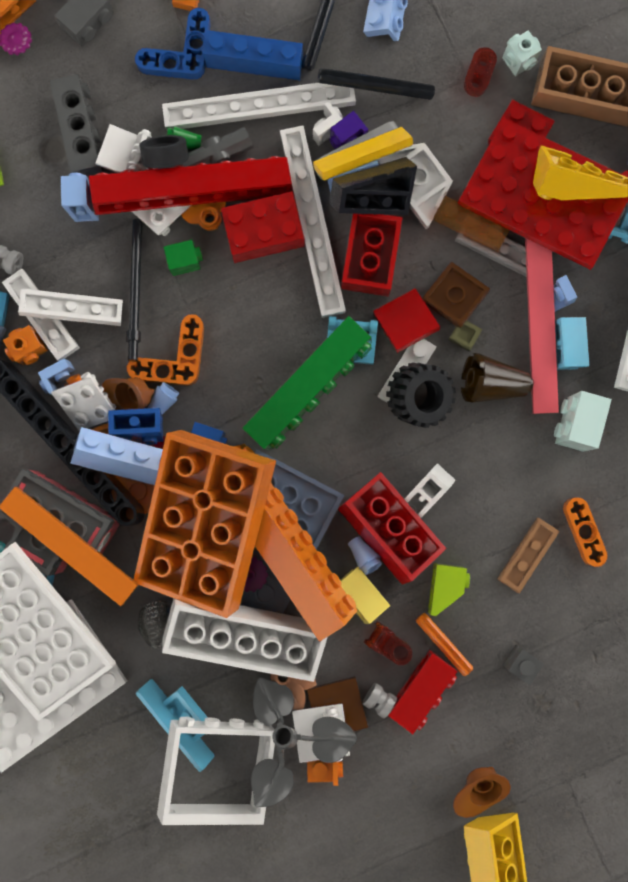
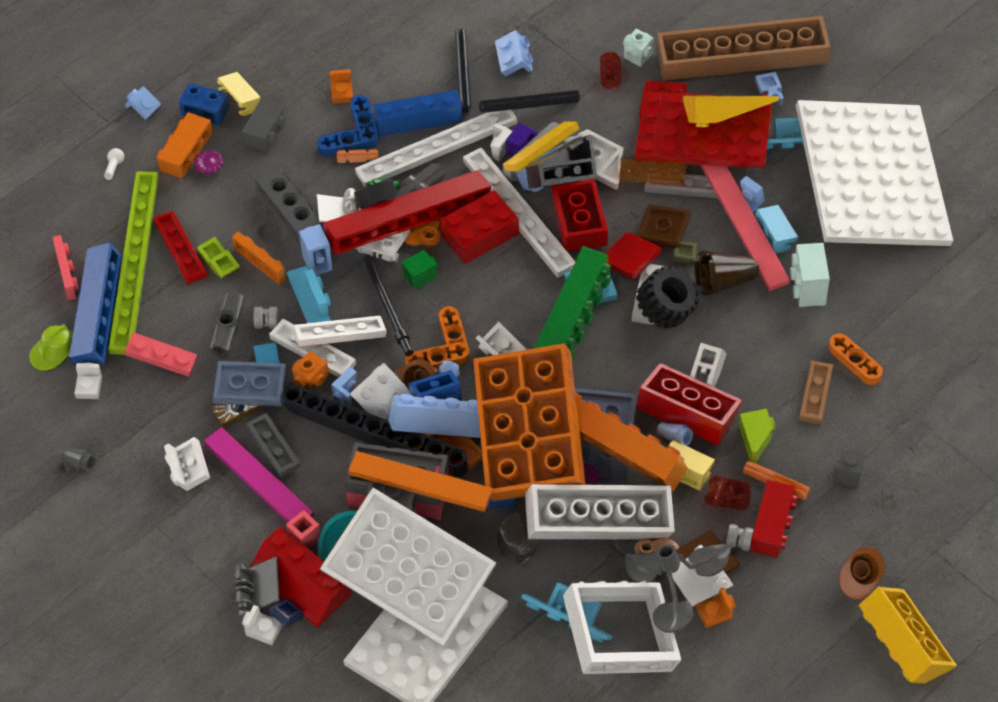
camera: 20 degrees left, 30 degrees down
(25, 181) = (259, 258): none -> orange plate
(60, 251) = (309, 294): none -> medium azure bracket
(173, 86) = (355, 156): none -> orange axle
(230, 386) = (499, 341): none -> white bracket

